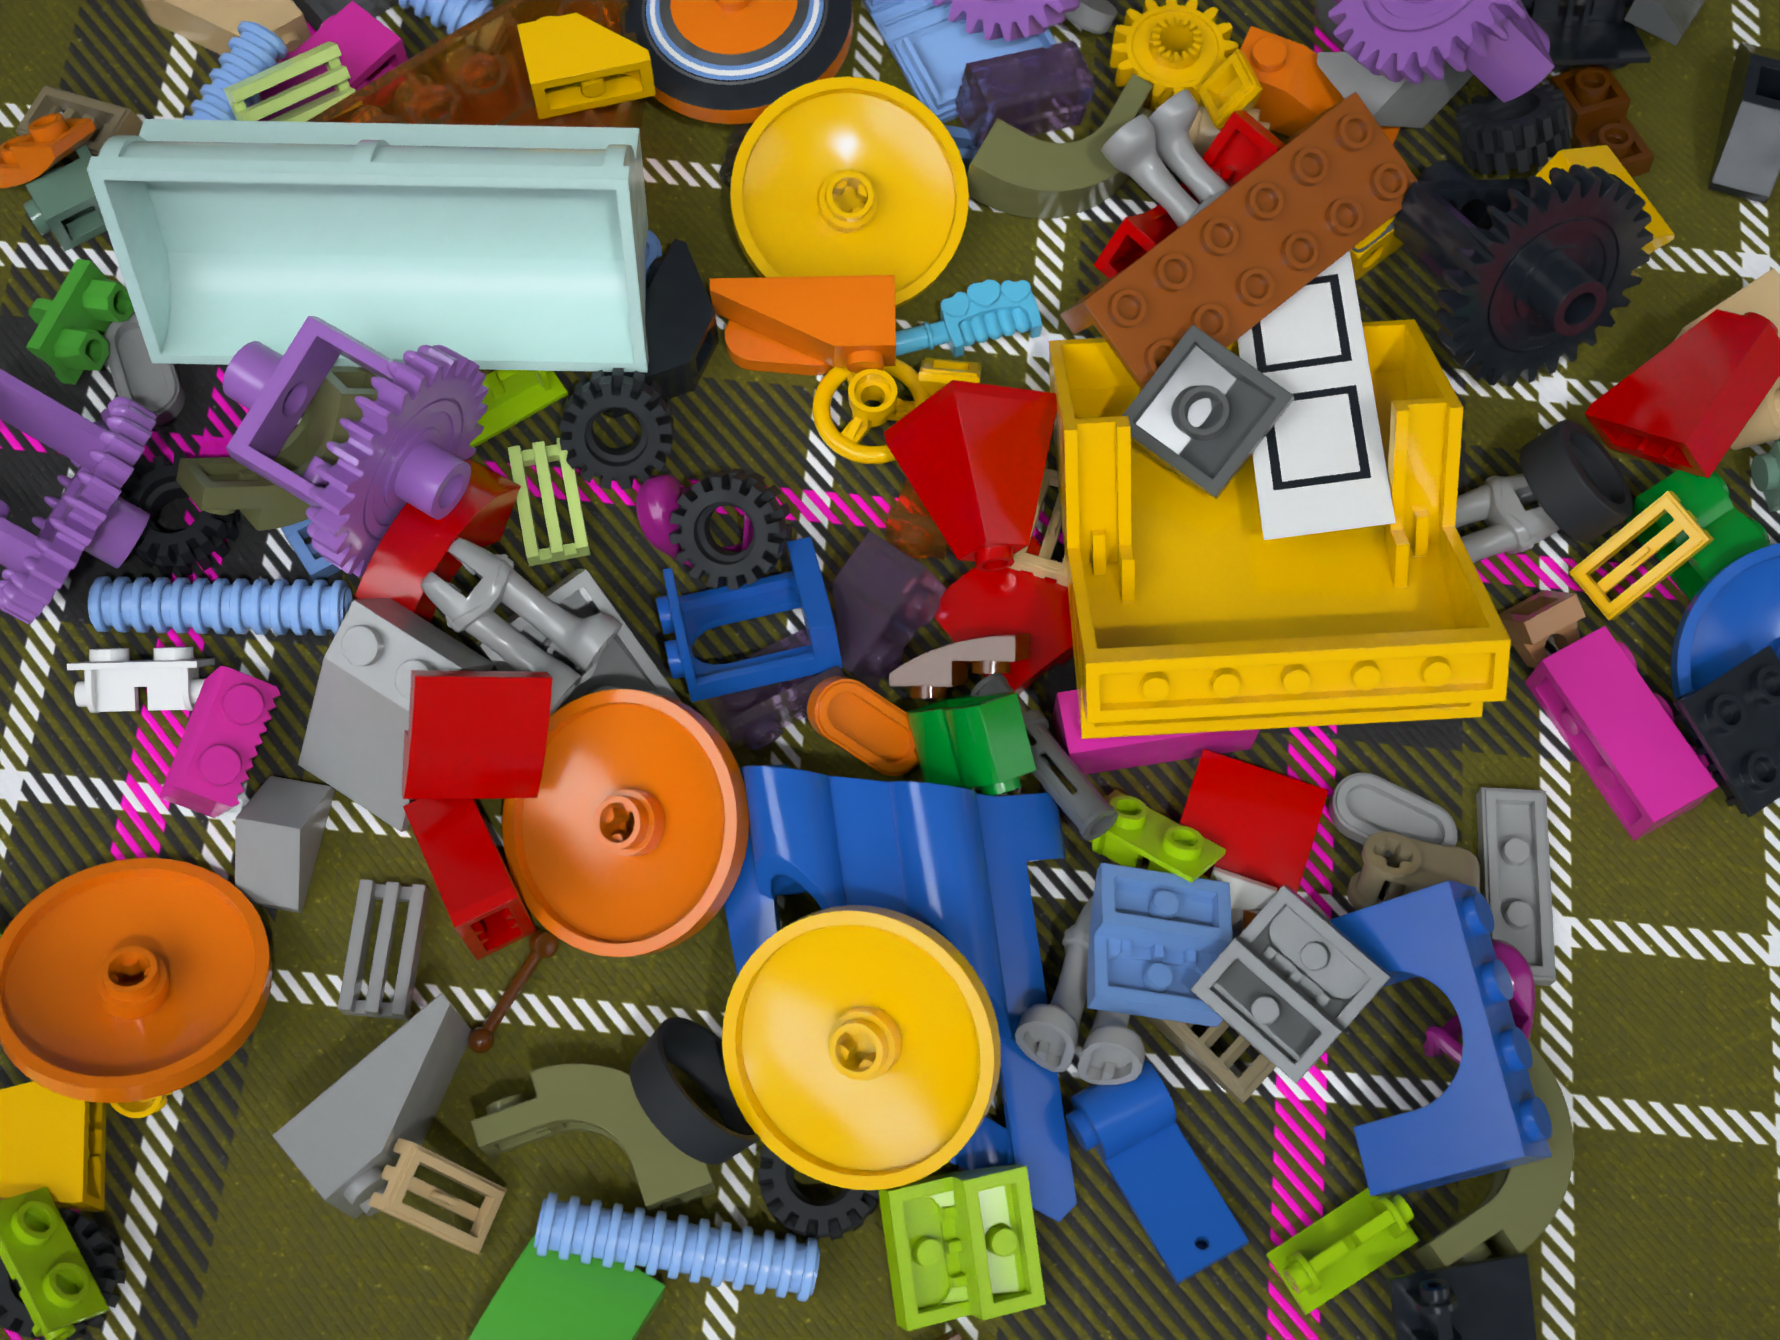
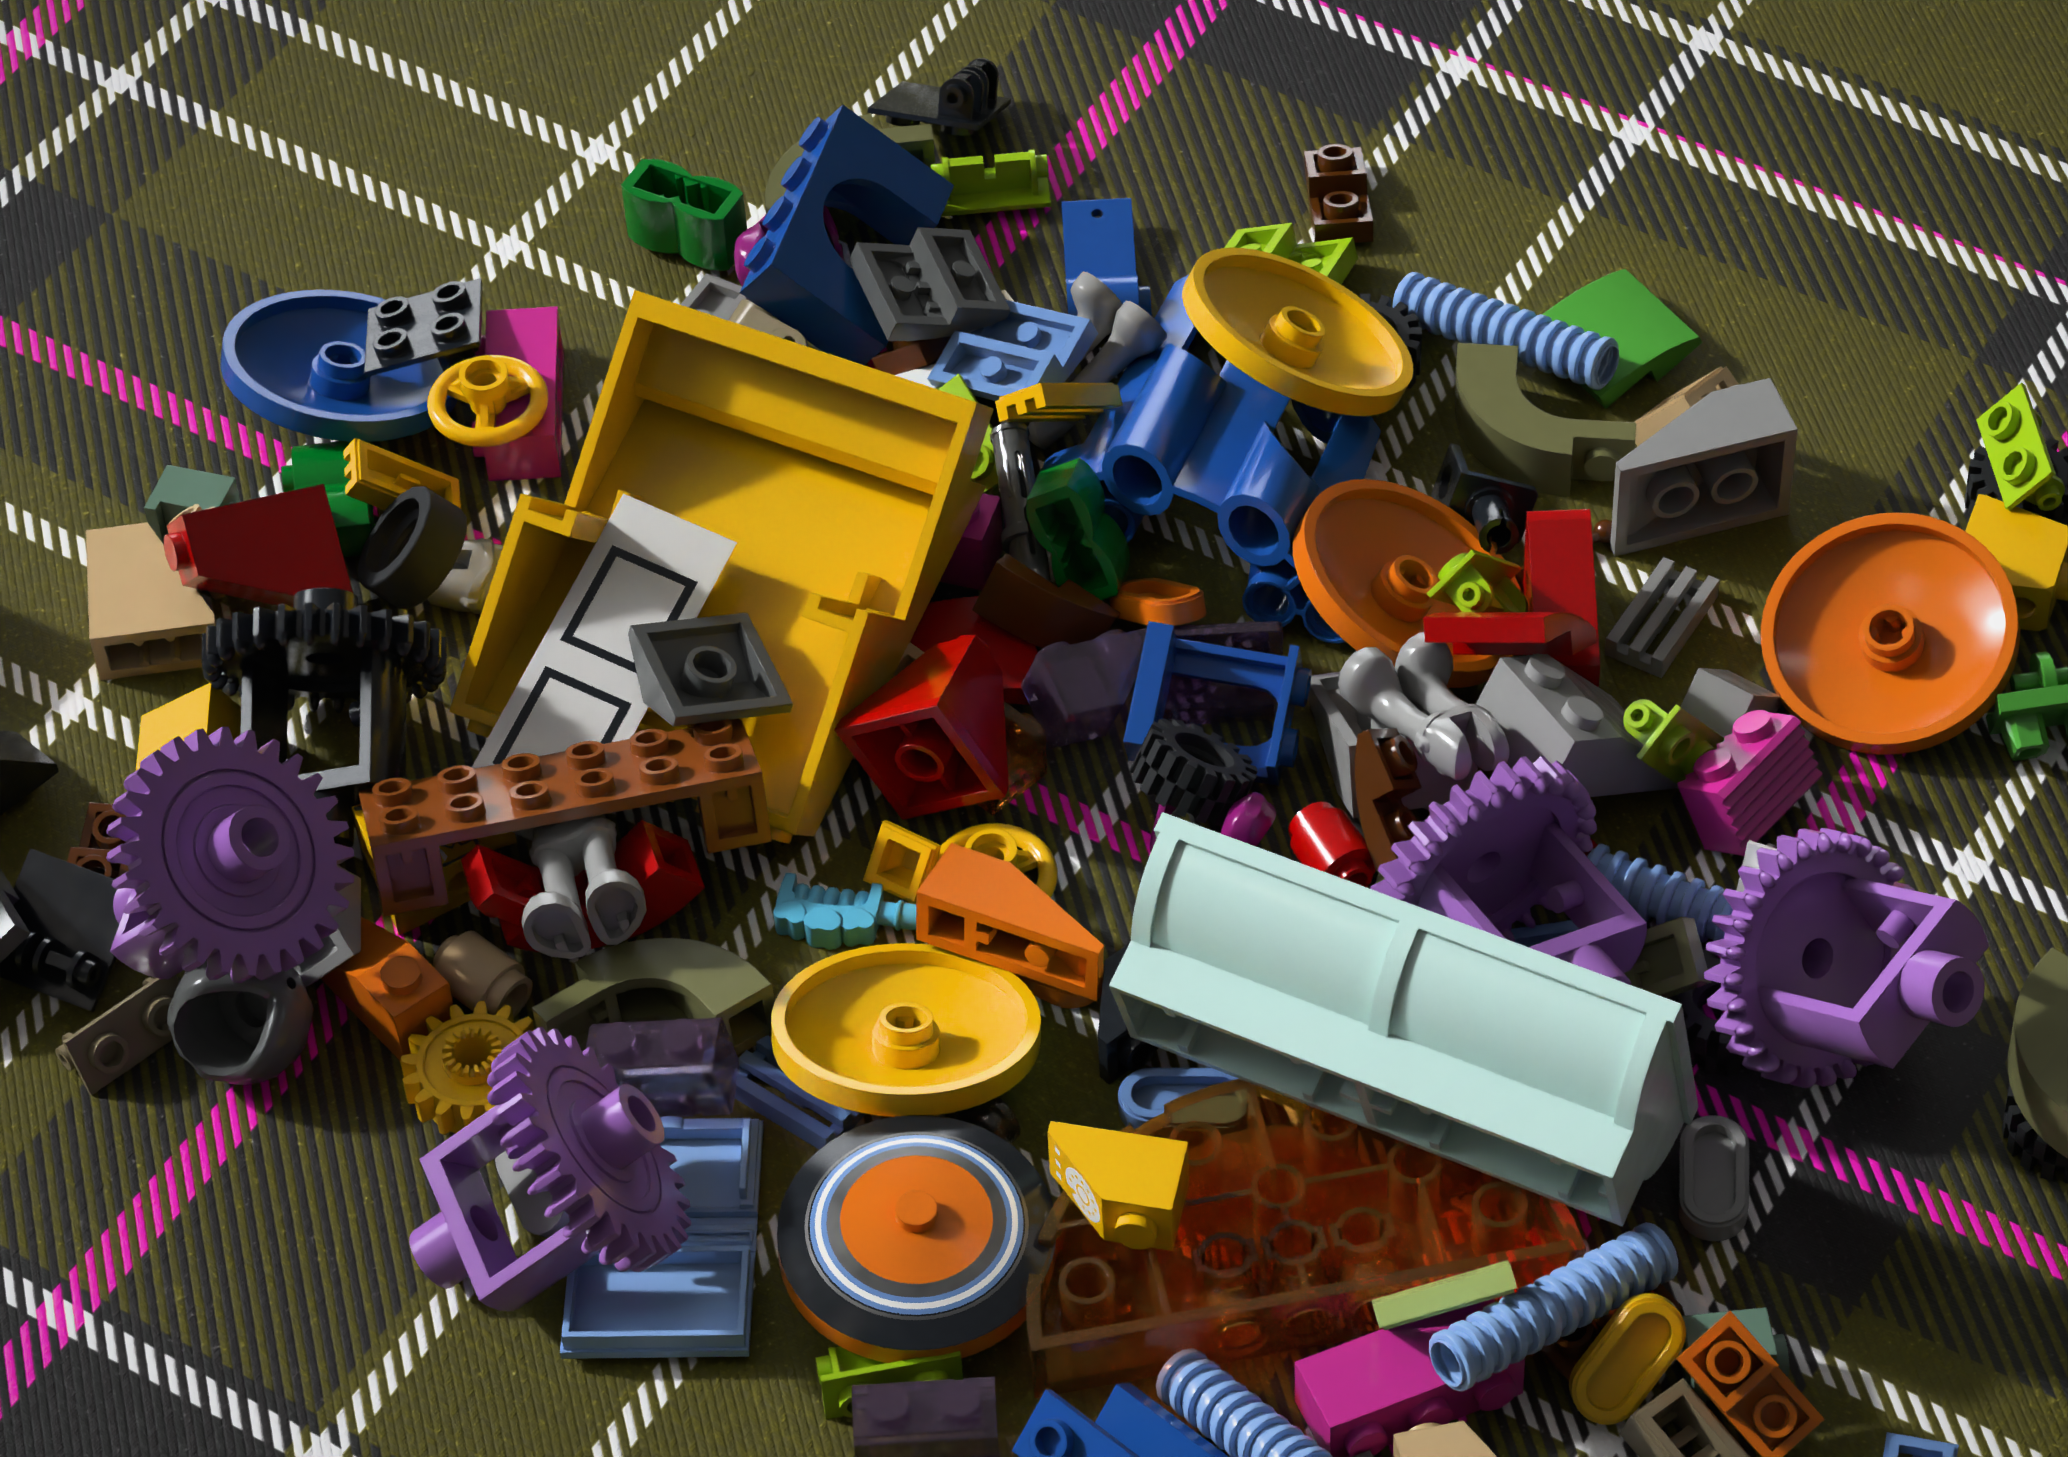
camera: 150 degrees left, 20 degrees down
(76, 320) = (1782, 1196): bright green hips -> none
(296, 711) = (1669, 740): none -> lime hinge
(529, 536) = (1382, 777): none -> reddish brown slope
(540, 840) = (1479, 584): none -> lime hinge
(572, 505) = (1331, 843): none -> red brick
(594, 976) = (1488, 502): none -> black bracket
(670, 1108) = (1470, 402): black tyre -> none
(1057, 867) = (1057, 402): none -> yellow tile
(1230, 89) = (467, 955): yellow slope -> none
(1538, 618) = (514, 476): medium nougat tile -> none
(1634, 1024) = (683, 213): none -> green brick
(1649, 640) = (488, 388): none -> yellow piece

